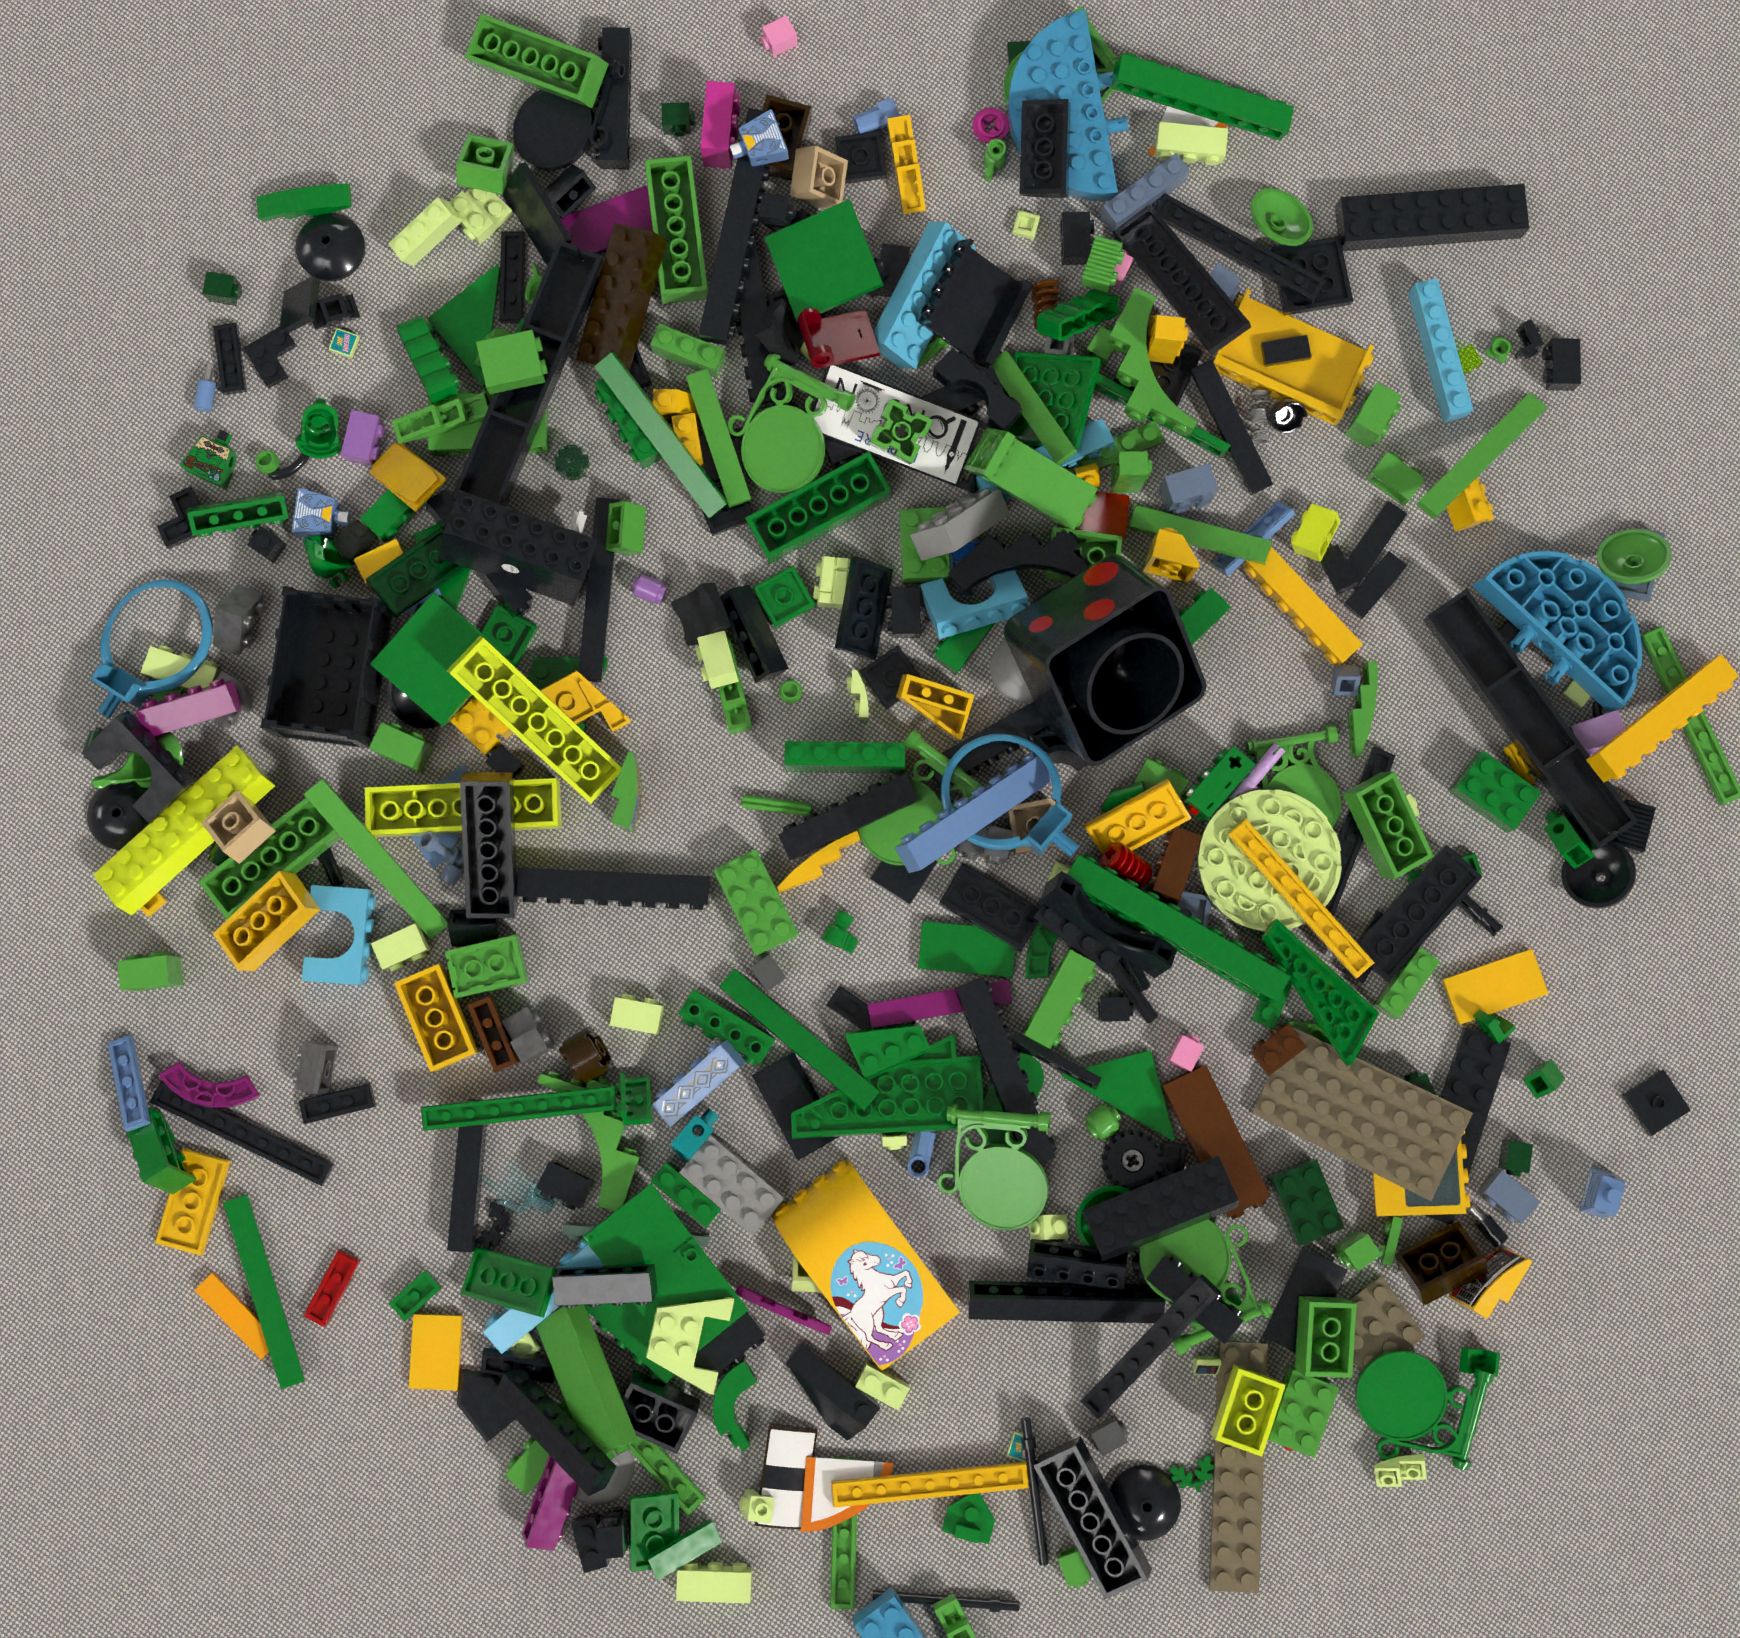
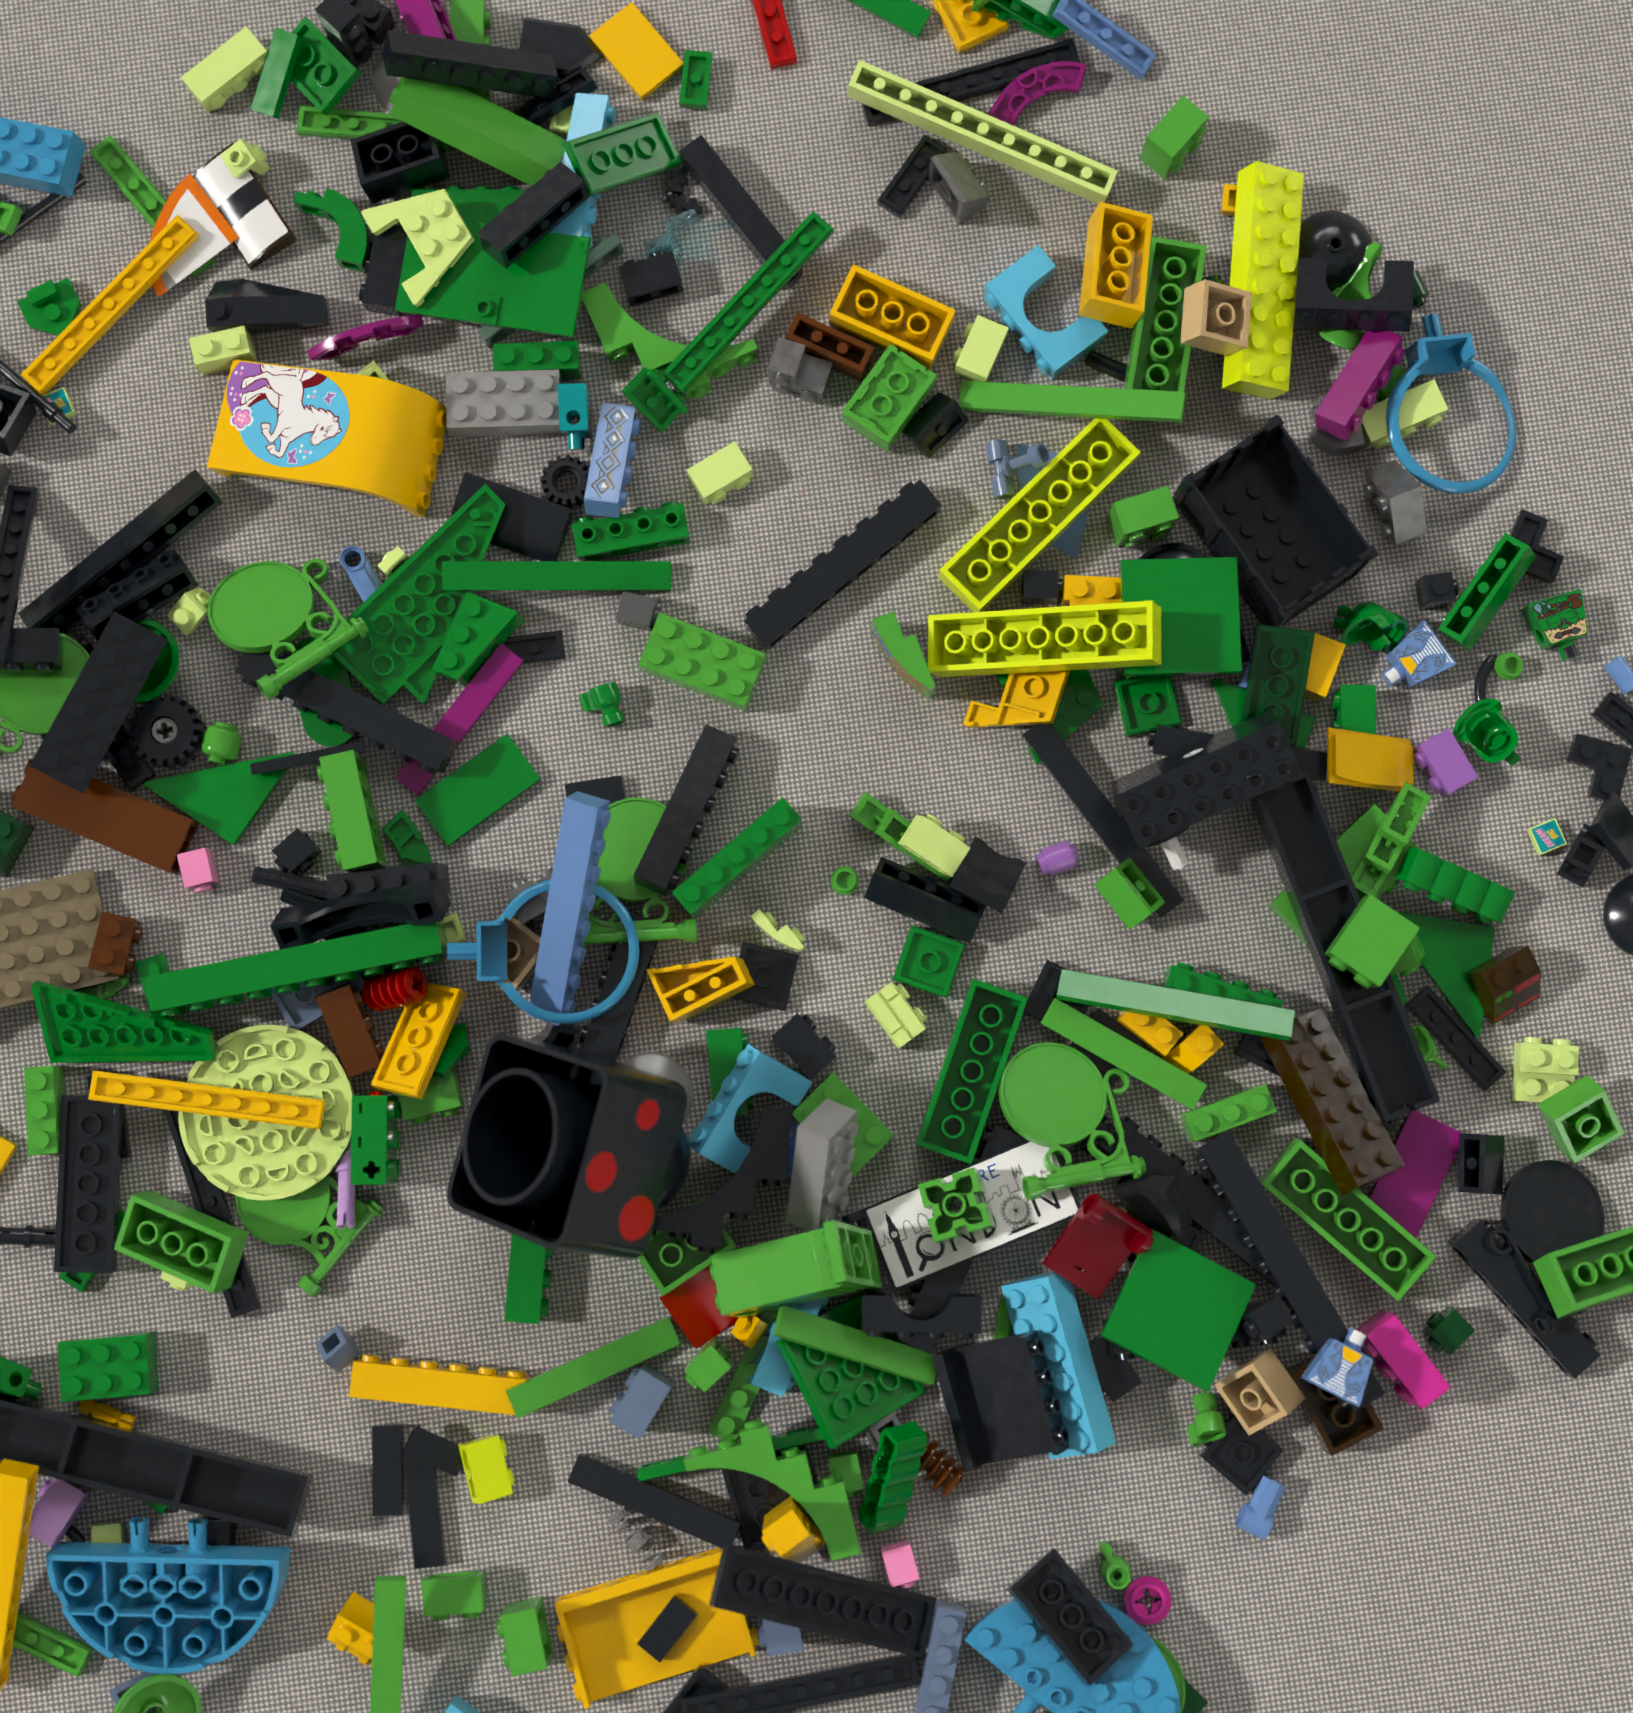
camera: 145 degrees right, 0 degrees up
(268, 1087) = (981, 132): none -> yellowish green brick
(354, 540) = (1361, 663): pearl dark grey brick -> none
(425, 231) = (1572, 1004): yellowish green brick -> none
(451, 280) = (1506, 982): none -> dark brown slope
(489, 844) = (983, 496): black brick -> none
(535, 212) = (1489, 1115): black tile -> none
(576, 469) = (1224, 912): clear green brick -> none
(586, 1055) = (731, 398): dark brown brick -> none
(724, 1102) = (554, 470): none -> black tyre
(776, 805) = (764, 766): bright green axle -> none
(779, 36) = (1429, 1503): bright pink brick -> none
(810, 868) = (681, 737): yellow slope -> none
(863, 608) = (845, 1014): black plate -> none
(865, 188) = (1208, 1422): none -> bright green piece
(906, 164) = (1192, 1485): yellow slope -> none
(989, 907) = (489, 844): black tile -> none
(1026, 224) = (1025, 1530): yellowish green tile -> none
(1076, 237) = (965, 1559): black brick -> none
(1102, 264) = (914, 1550): bright green brick -> none
(1171, 557) = (601, 1317): yellow slope -> none
(1263, 528) = (540, 1423): medium blue tile -> none
(1287, 415) = (610, 1562): black hair -> none
(1361, 718) = (292, 1325): bright green slope -> none

